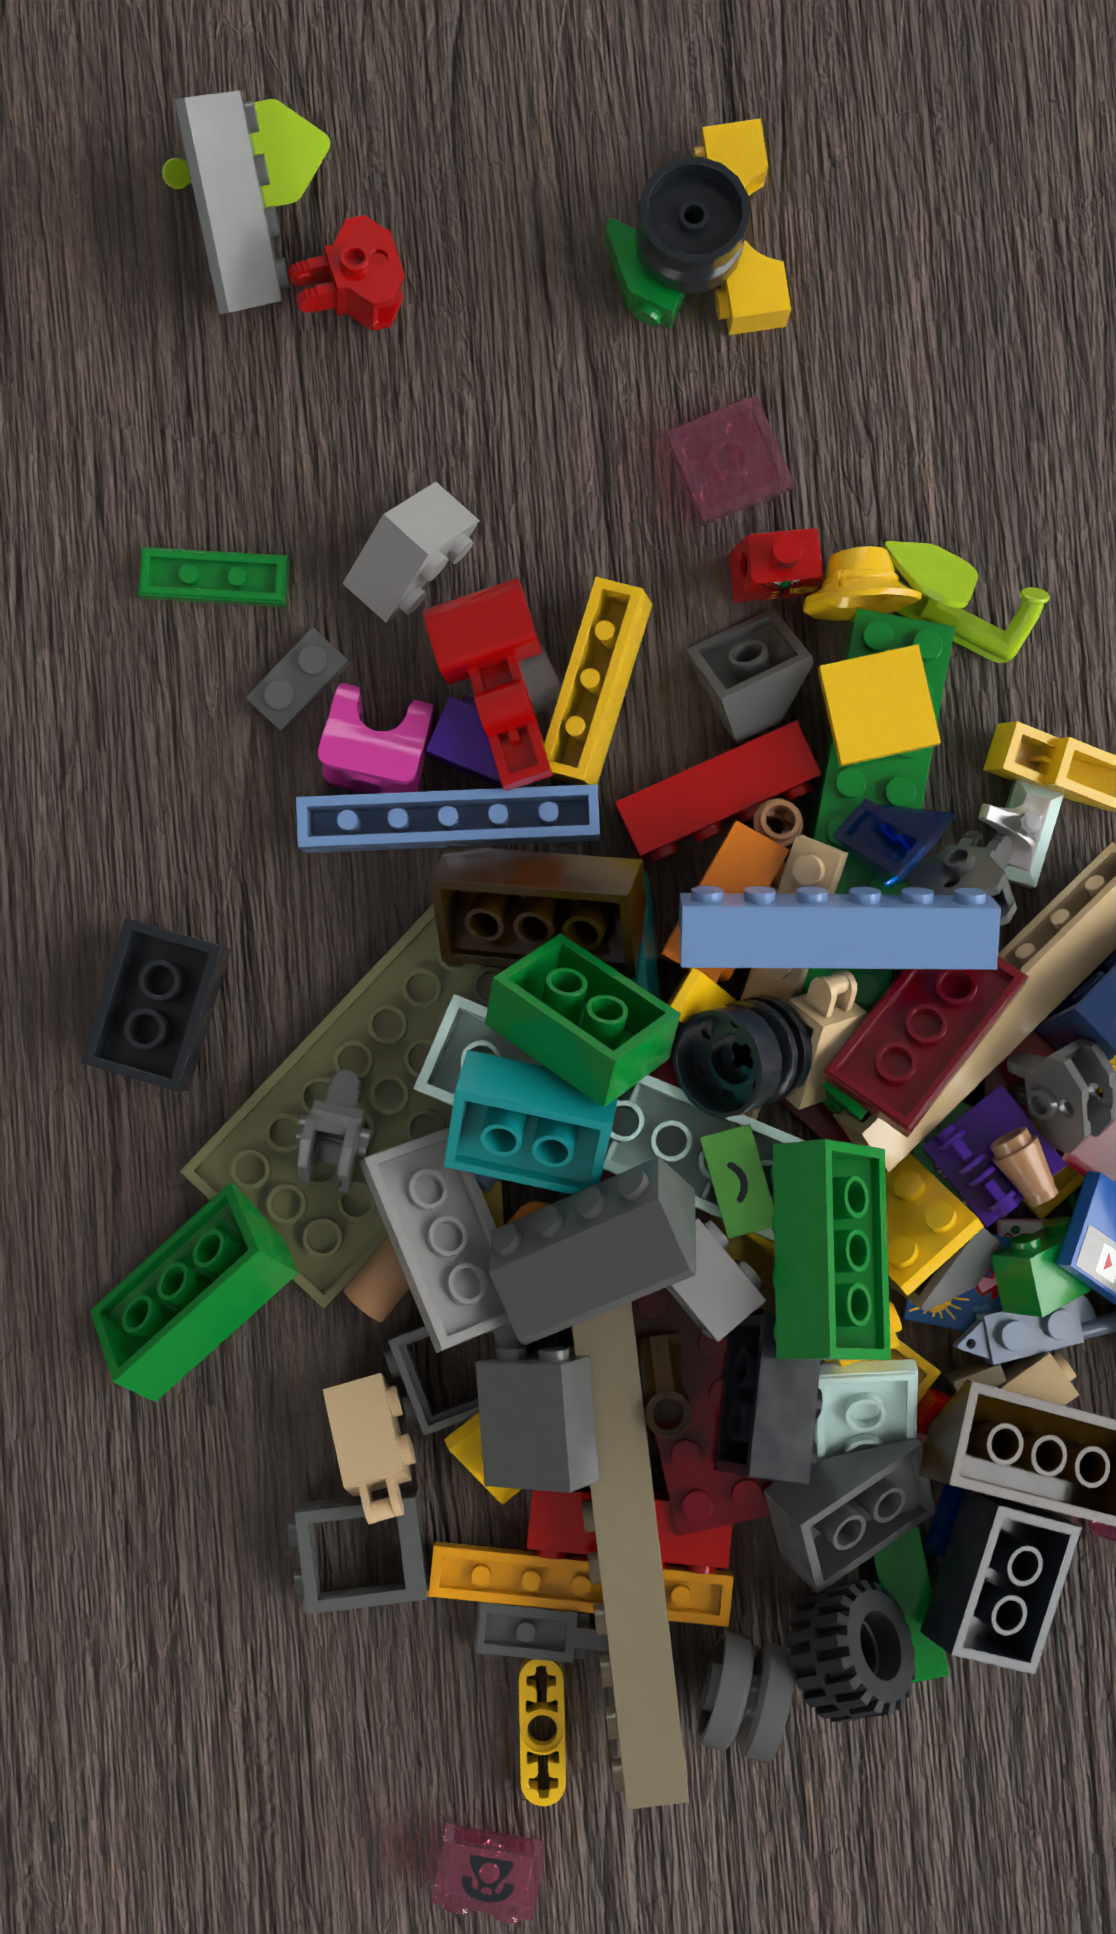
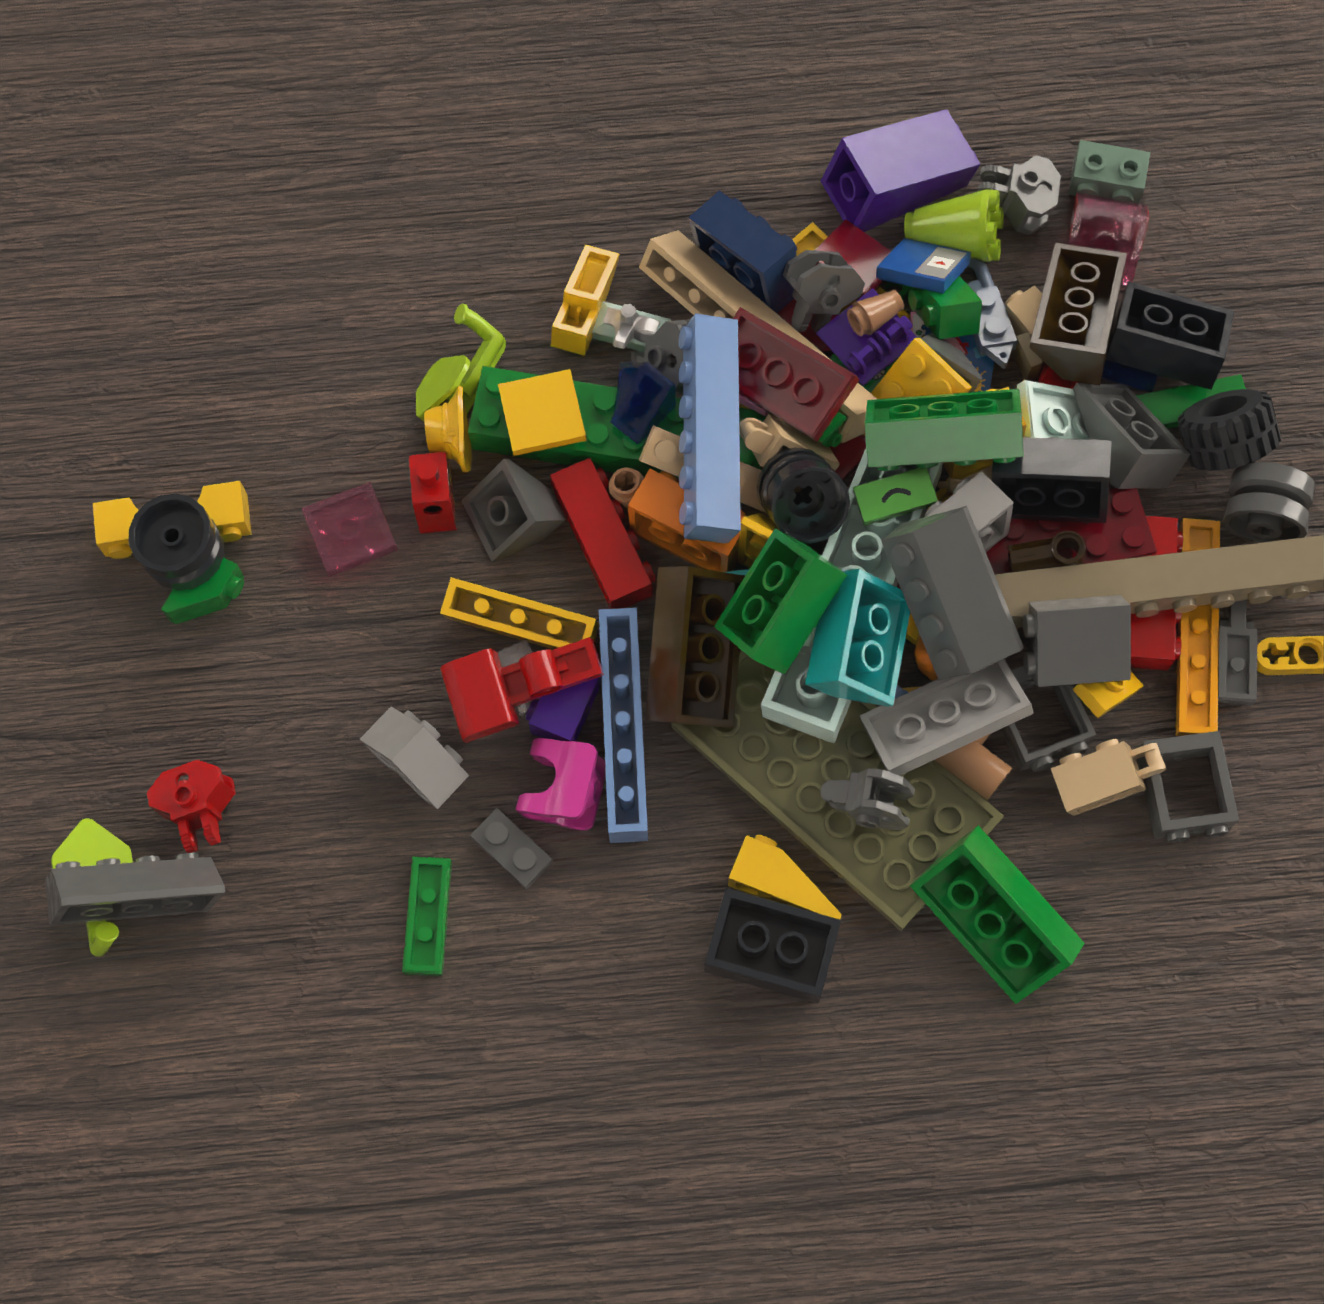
camera: 90 degrees left, 15 degrees down
(249, 1011) = (772, 875): none -> yellow slope

